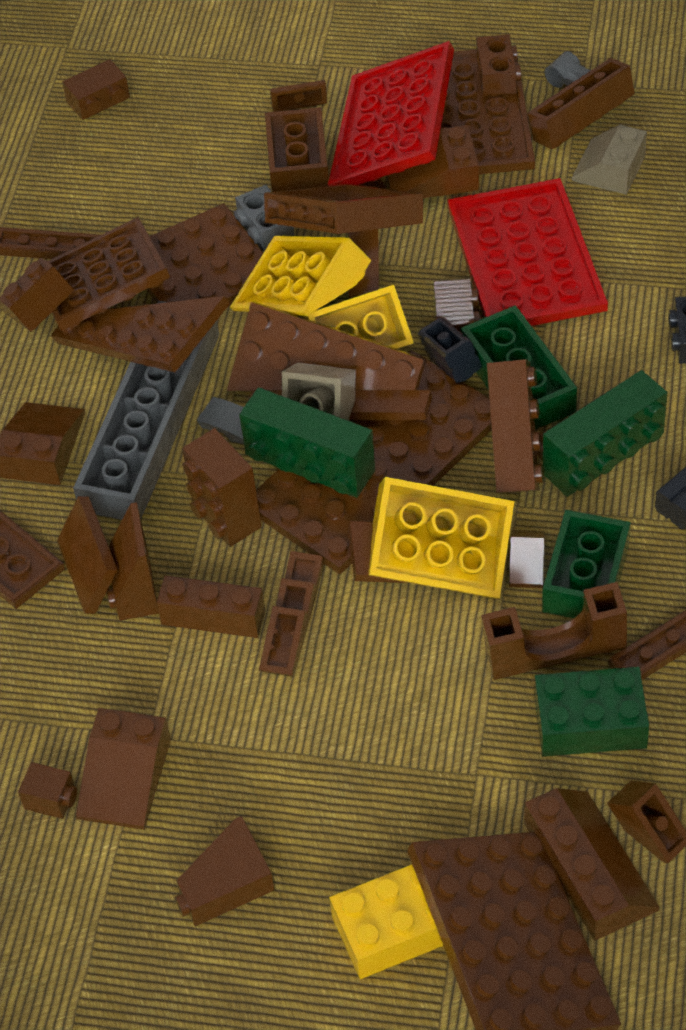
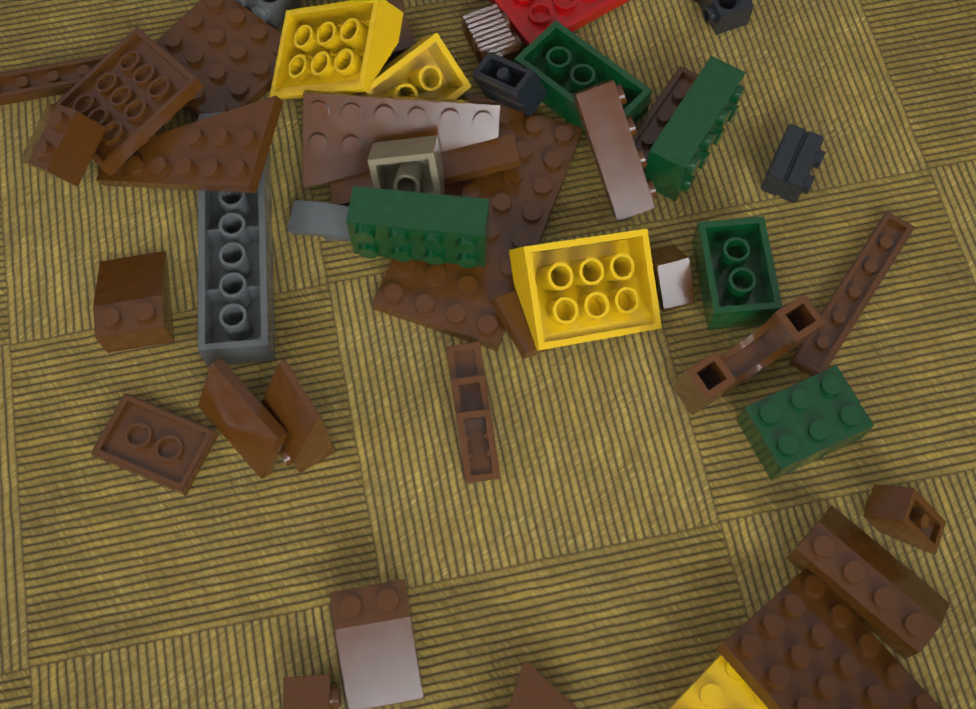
camera: 25 degrees left, 15 degrees up
(211, 606) = (390, 432): reddish brown brick -> none
(221, 487) = (353, 302): reddish brown brick -> none

